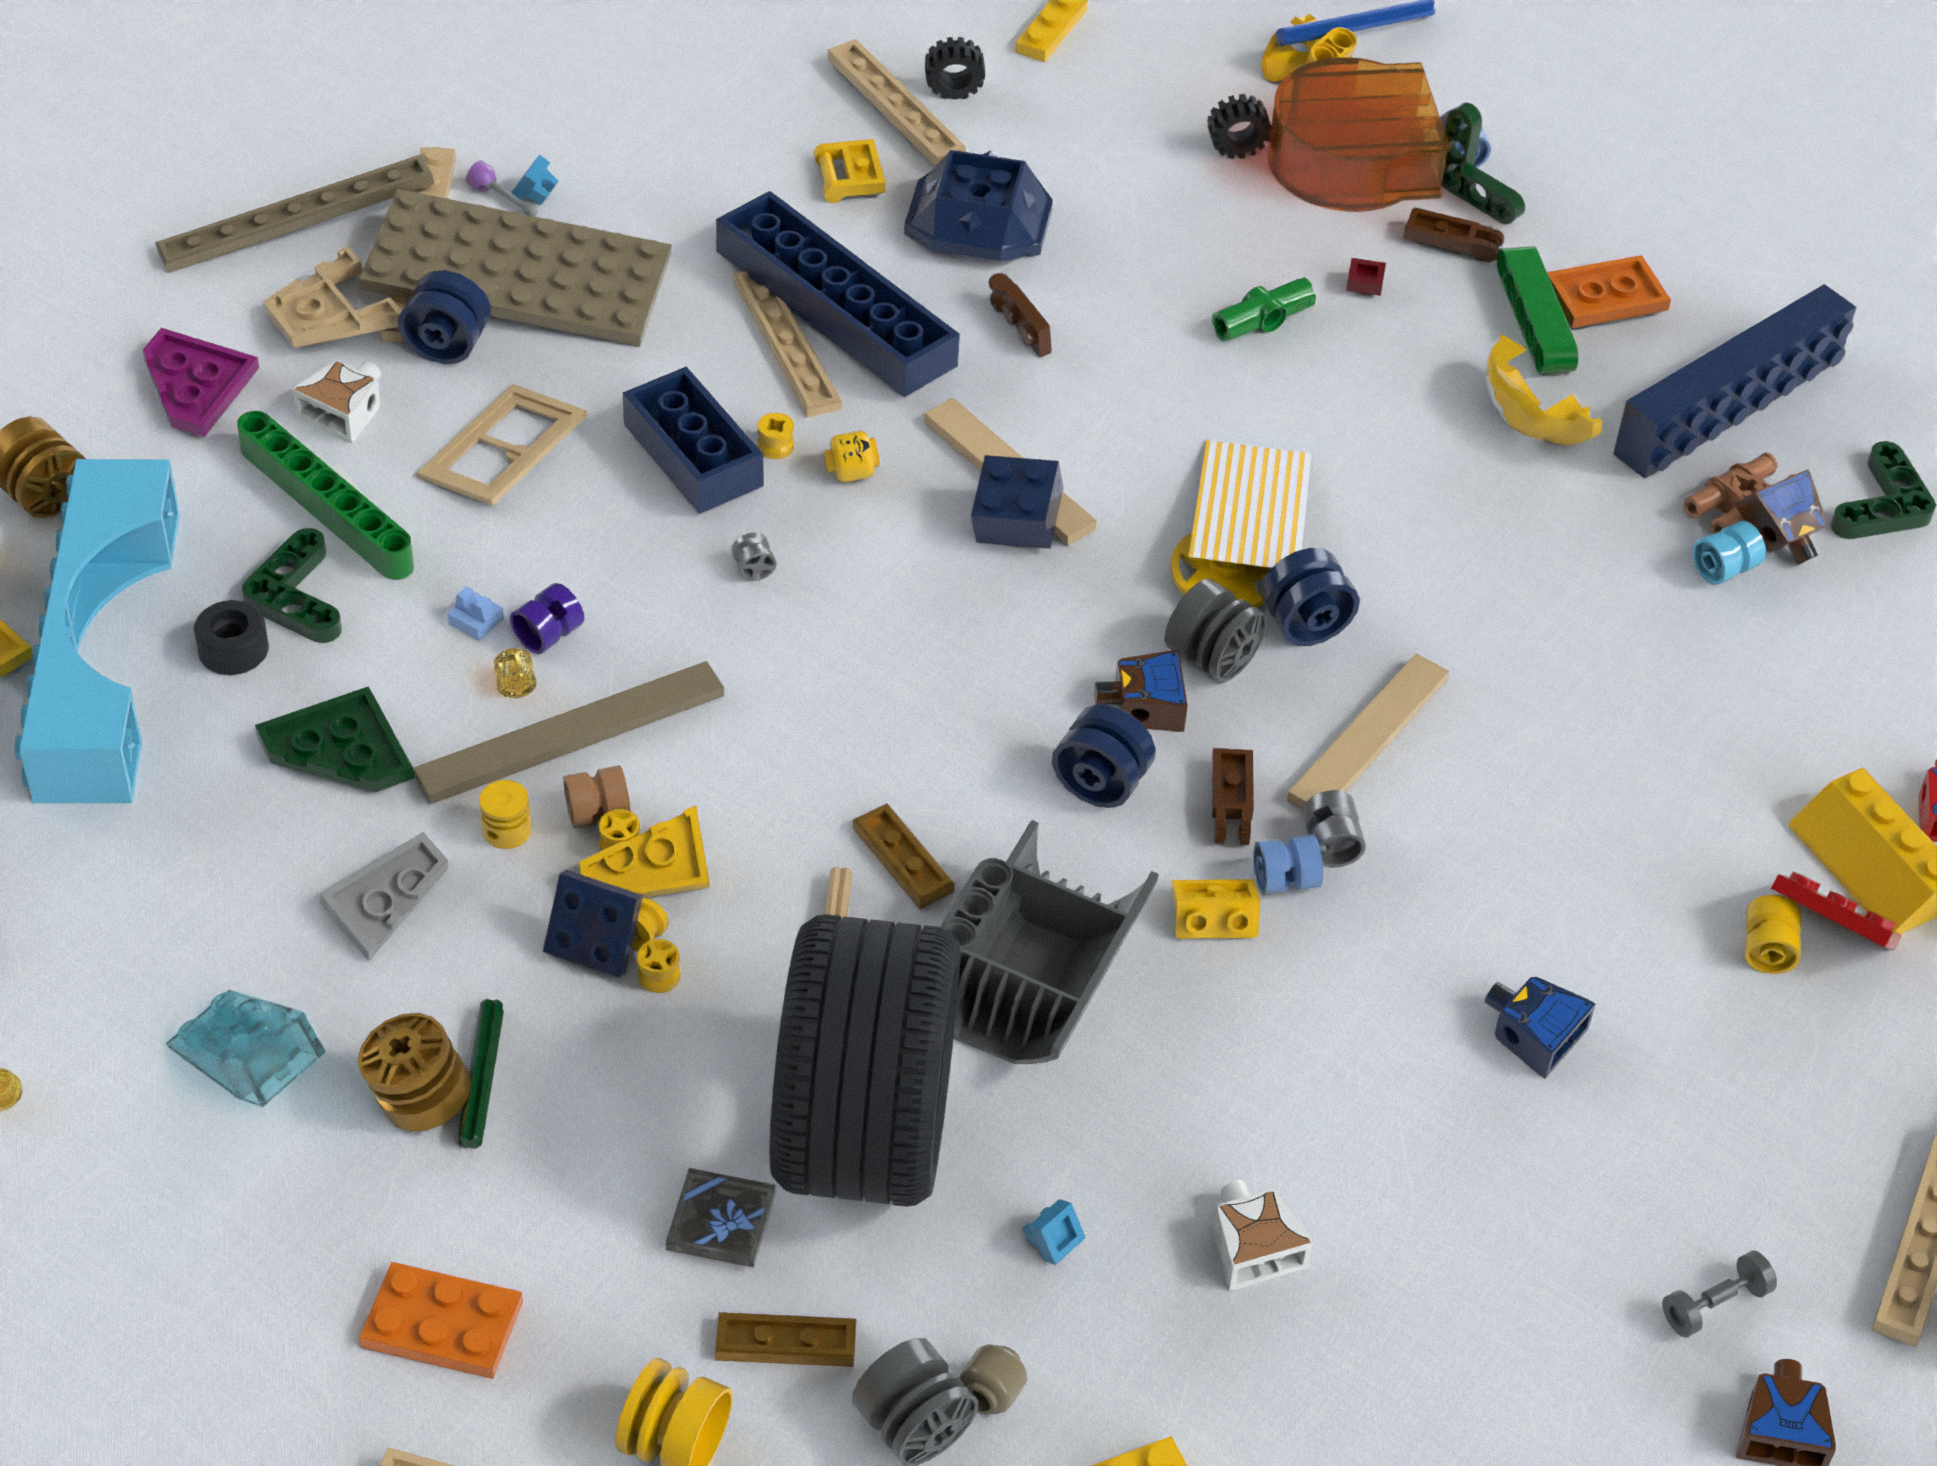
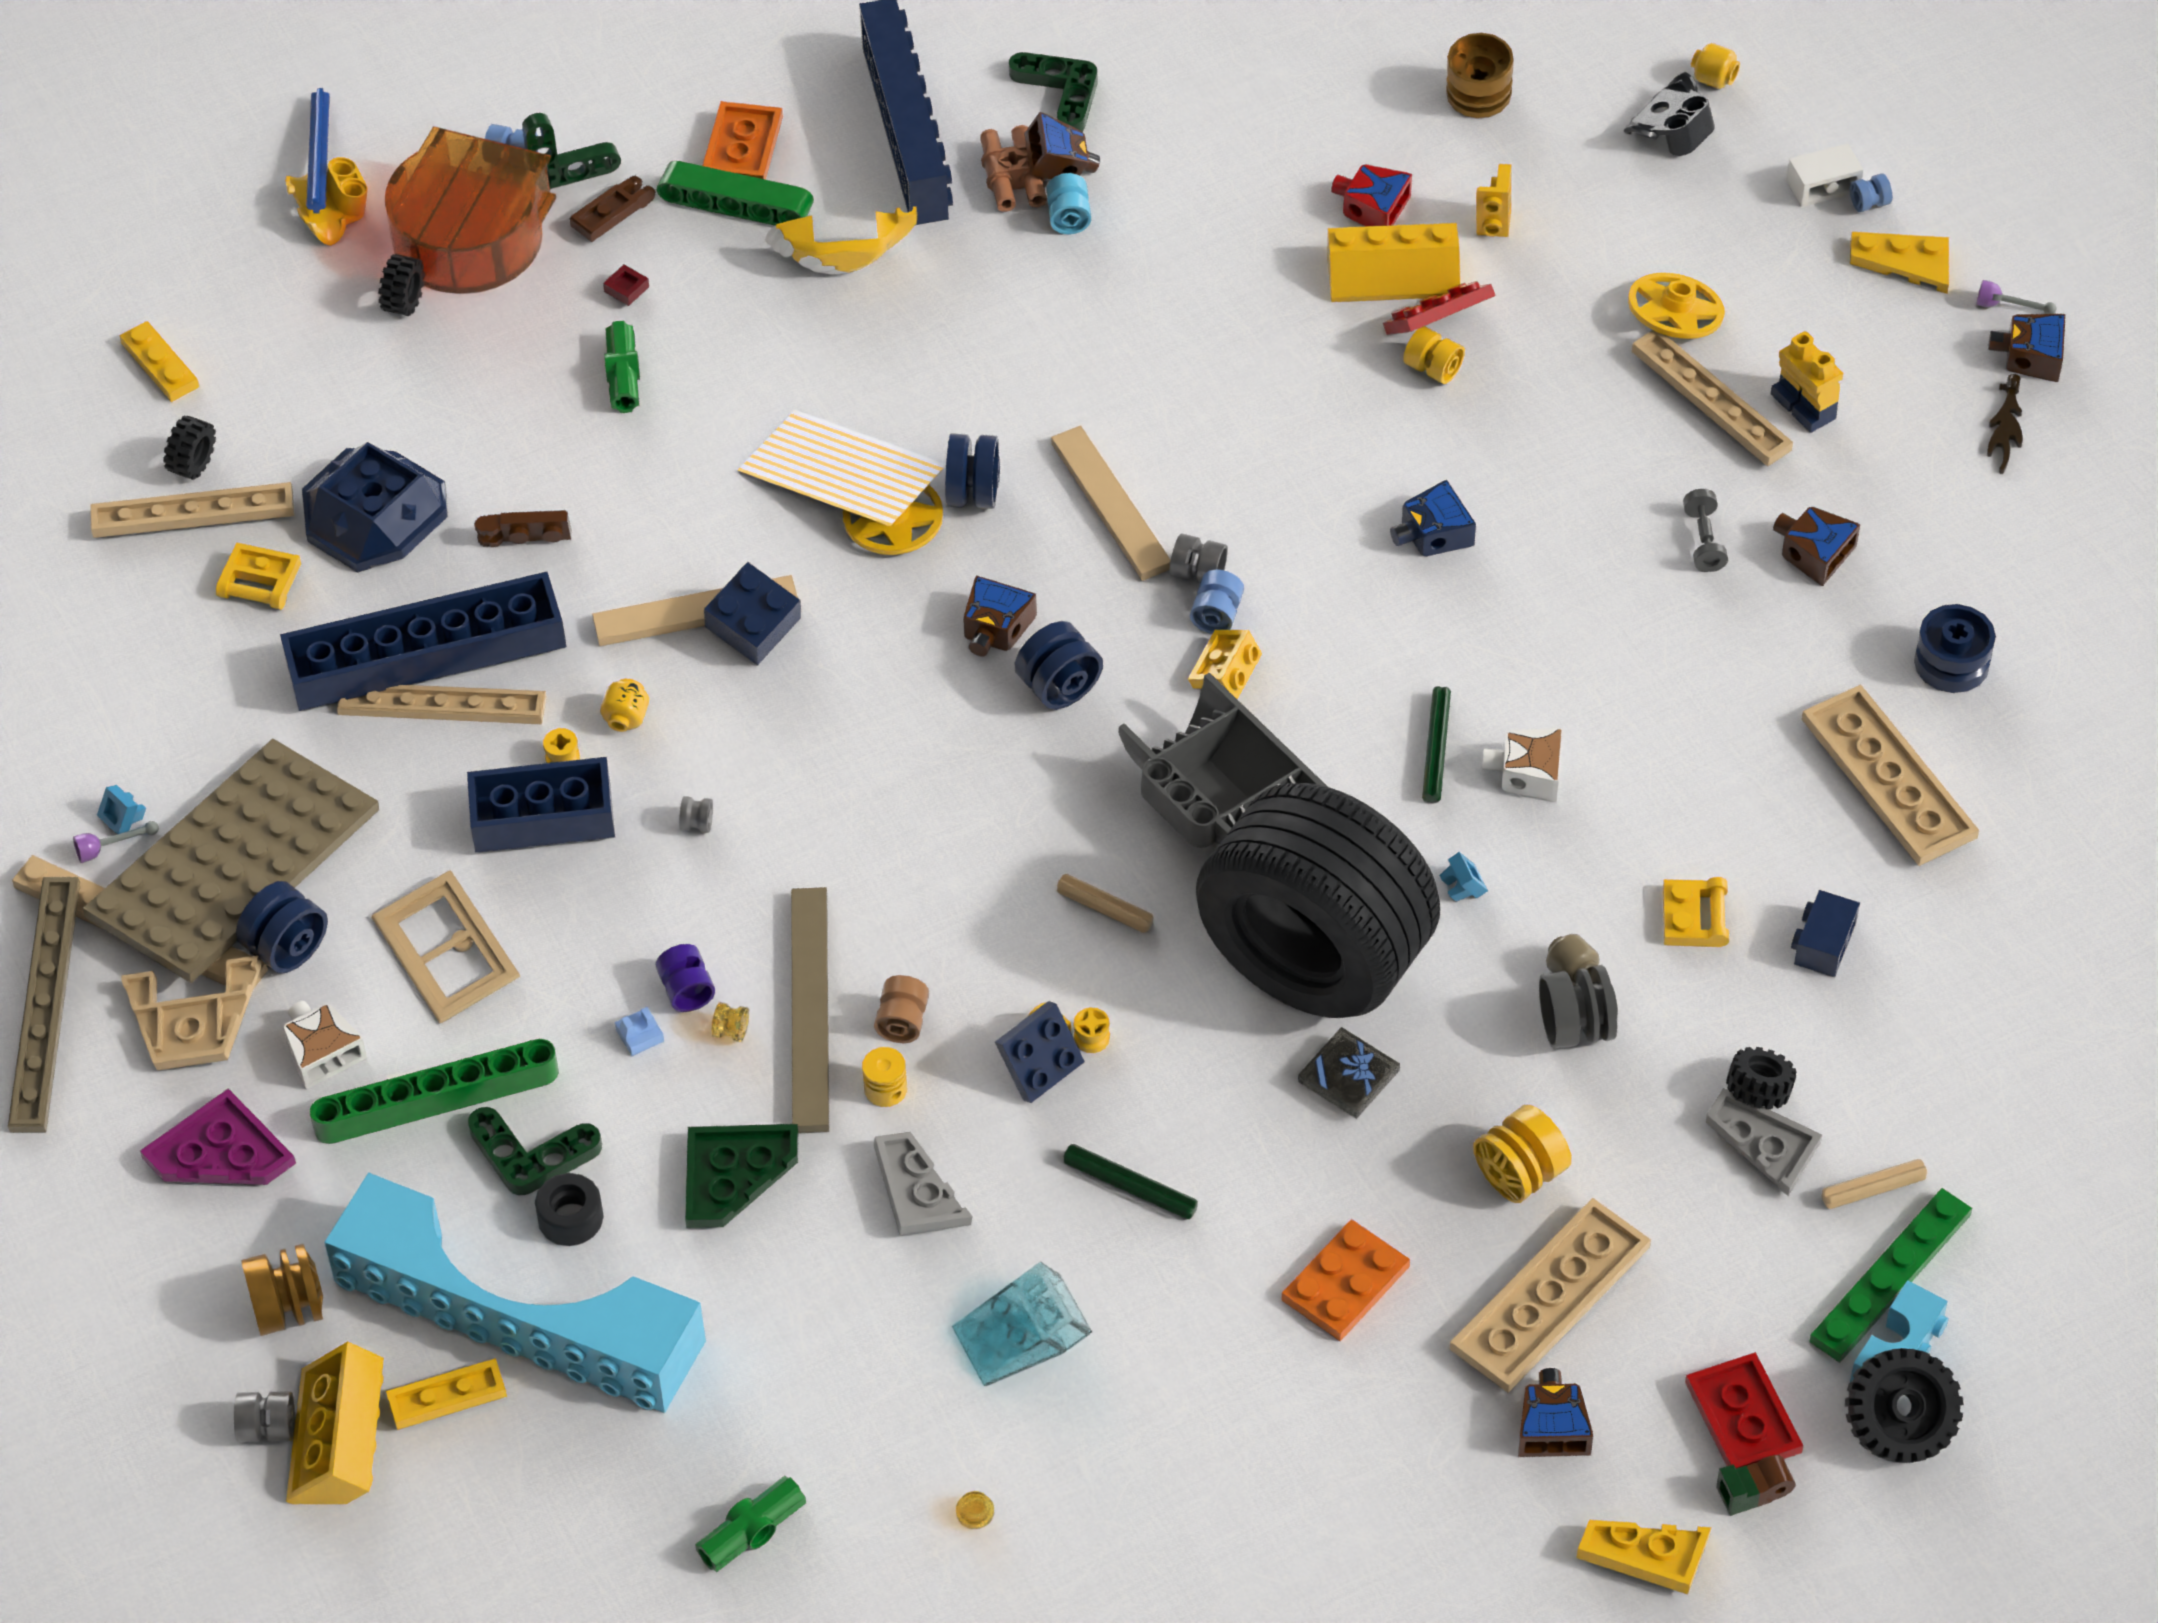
camera: 60 degrees left, 5 degrees up
(414, 1072) = (1130, 1232): pearl gold wheel -> none
(618, 824) = (951, 1004): yellow wheel -> none
(657, 861) = (989, 997): yellow wing -> none
(785, 1339) = (1469, 1074): pearl gold tile -> none
(903, 856) = (1064, 837): pearl gold tile -> none
(1215, 630) = (964, 545): dark grey wheel -> none
(1231, 1139) = (1436, 744): none -> dark green axle
(1232, 792) = (1124, 608): reddish brown hinge -> none

